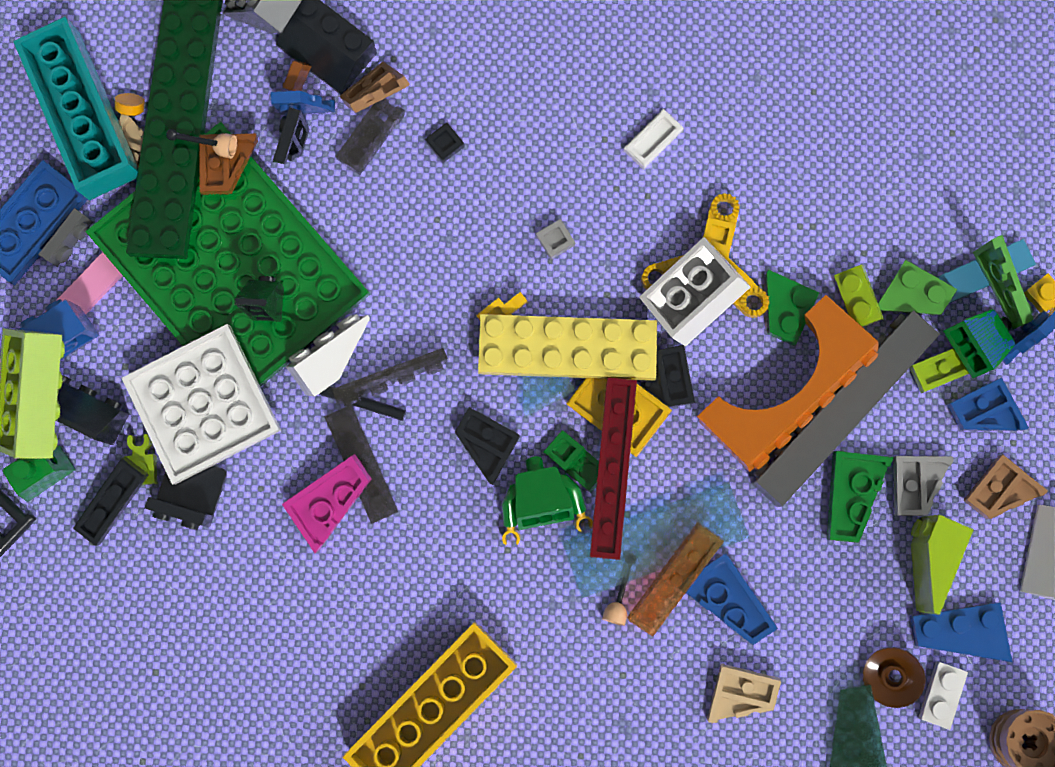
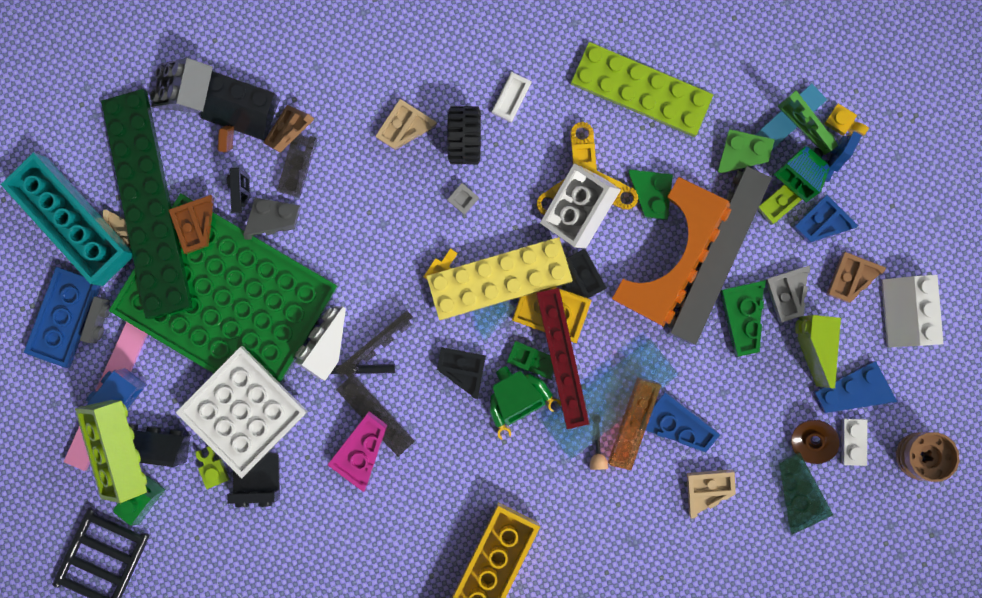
camera: 15 degrees left, 5 degrees up
(110, 501) = (200, 504): black tile -> none
(129, 104) = (106, 201): light orange tile -> none
(223, 144) = (189, 212): hinge -> none
(262, 299) = (259, 319): slope -> none
(301, 101) = (235, 159): blue wing -> none
(318, 186) = (271, 217): none -> dark grey wing
(444, 142) = (355, 152): black tile -> none
(513, 130) = (404, 125): none -> tan wing
(582, 162) = (464, 135): none -> black tyre
(814, 180) = (642, 89): none -> lime plate
(858, 295) = (703, 167): lime plate -> none

